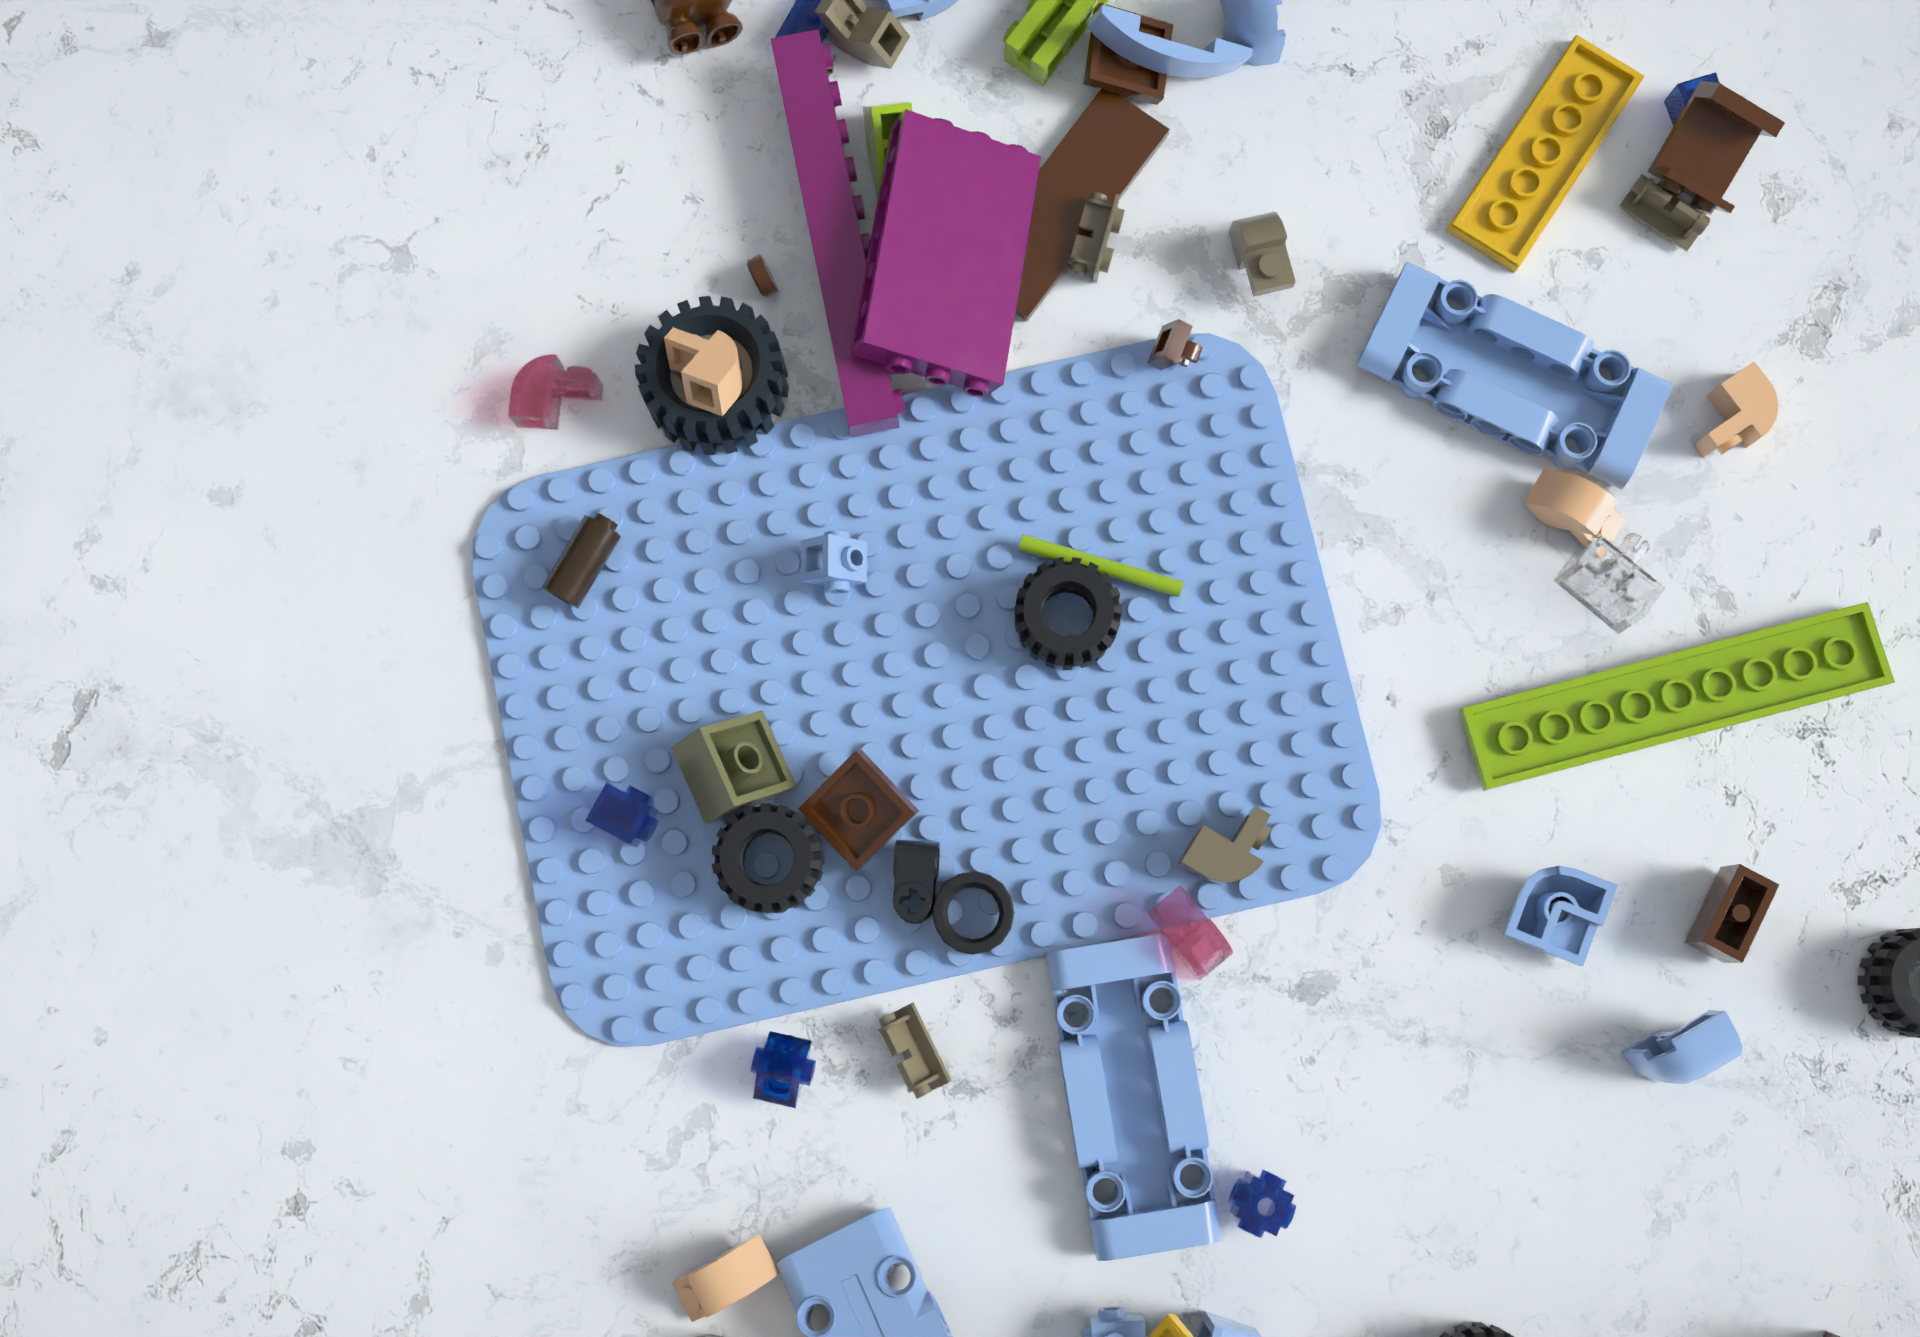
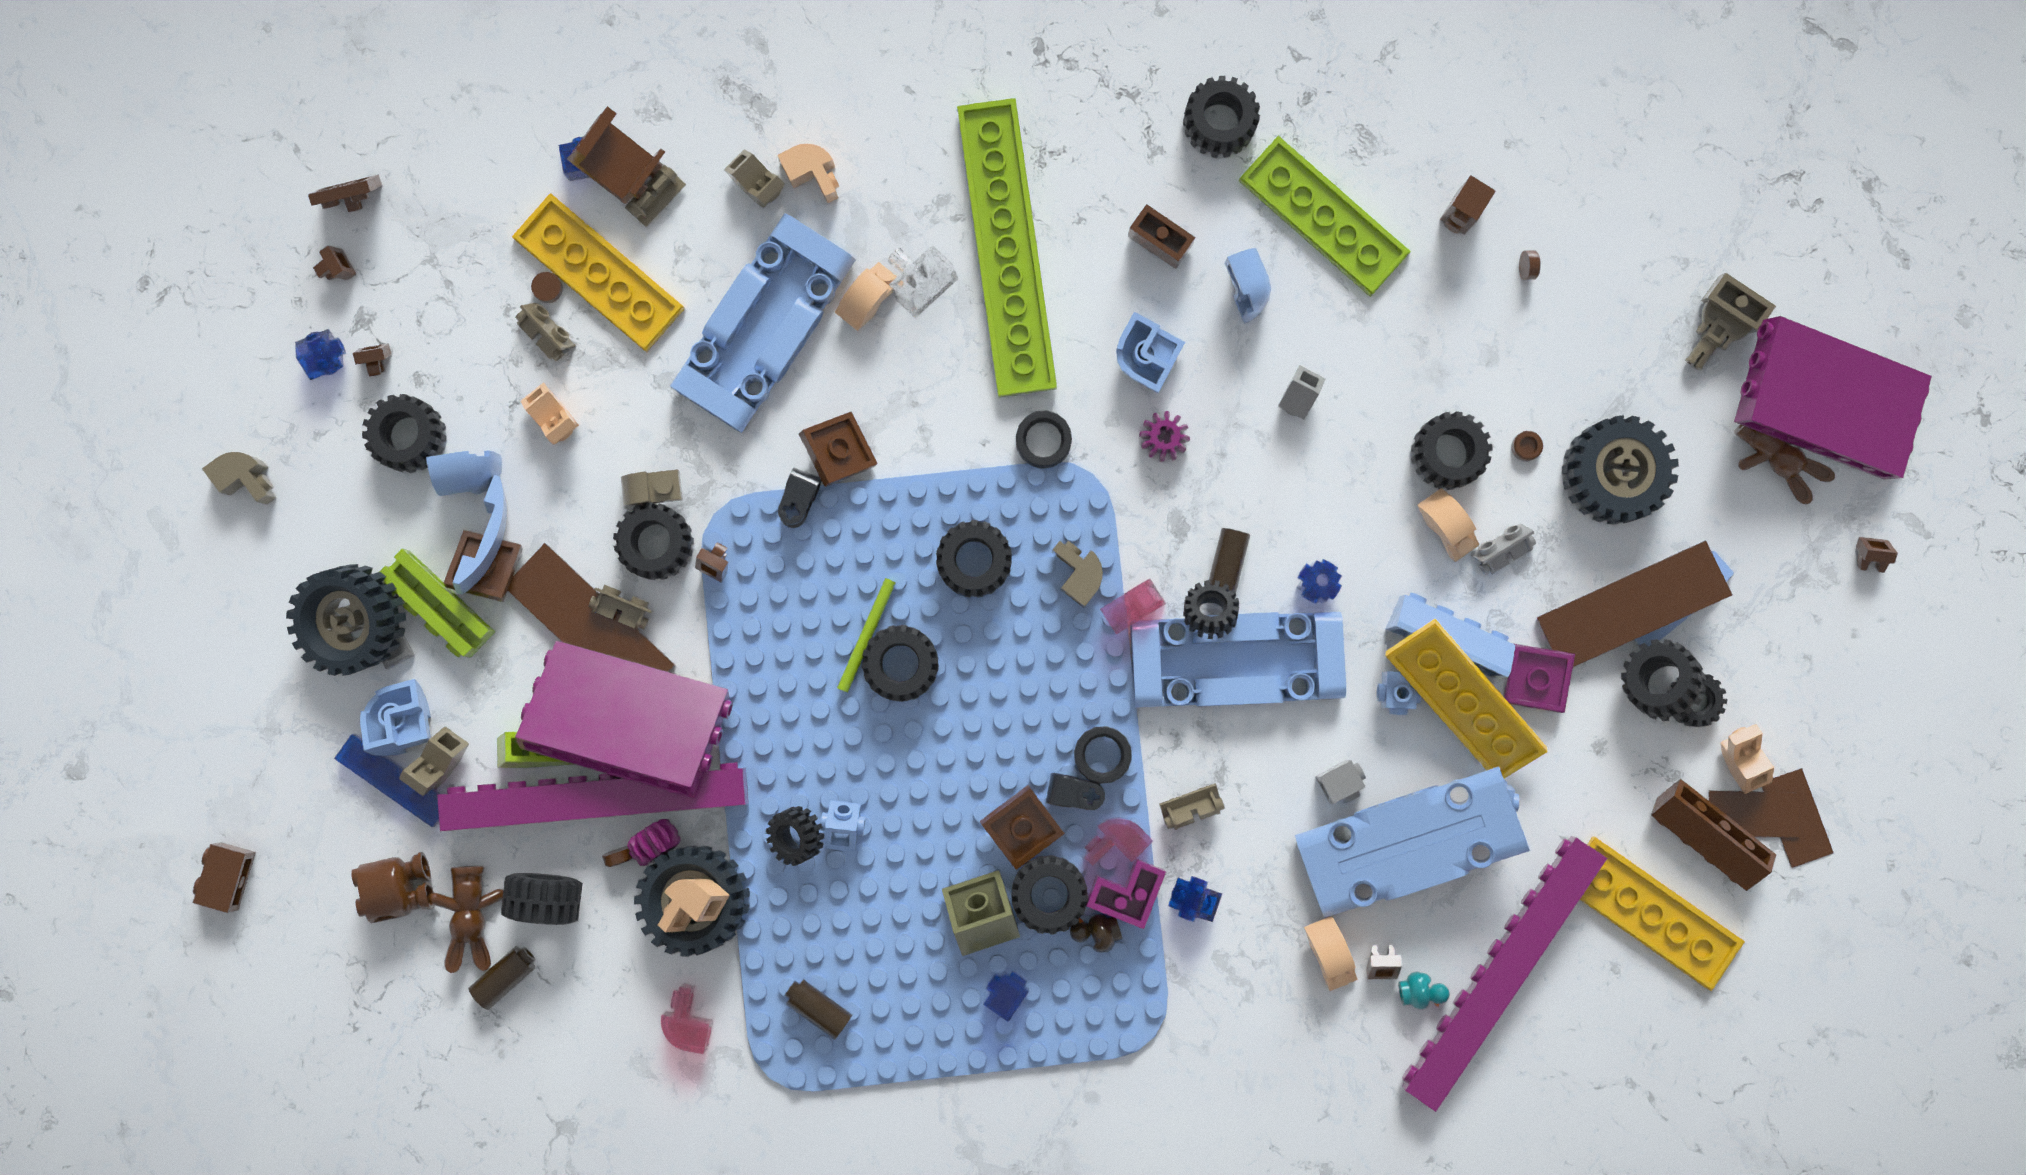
camera: 90 degrees left, 5 degrees up
(588, 149) = (502, 977): none -> dark brown brick
(657, 95) = (467, 921): none -> reddish brown animal
(694, 179) = (541, 898): none -> black tyre
(725, 942) = (1103, 930): none -> dark brown animal
(768, 973) = (1128, 902): none -> magenta brick
(786, 316) = (653, 841): none -> magenta gear
(820, 513) = (783, 841): none -> black tyre
(864, 954) = (1119, 832): none -> clear pink brick
(974, 1269) = (1342, 782): none -> light grey brick
(1199, 236) = (632, 527): none -> black tyre
(1221, 1039) = (1209, 624): none -> black tyre
(1248, 669) = (974, 532): none -> black tyre
(1271, 1065) = (1229, 558): none -> dark brown brick
(1283, 450) = (799, 492): none -> black piece
(1343, 112) = (549, 414): none -> light nougat brick
(1354, 495) = (838, 449): none -> reddish brown hinge
(1436, 761) = (1040, 417): none -> black tyre
(1455, 956) = (1154, 432): none -> magenta gear
(1467, 80) = (536, 320): none -> dark tan hinge
(1514, 89) = (547, 287): none -> reddish brown tile
(1536, 1146) = (1301, 392): none -> light grey brick
(1713, 338) = (754, 178): none -> dark tan brick
(1800, 1154) = (1324, 216): none -> lime tile

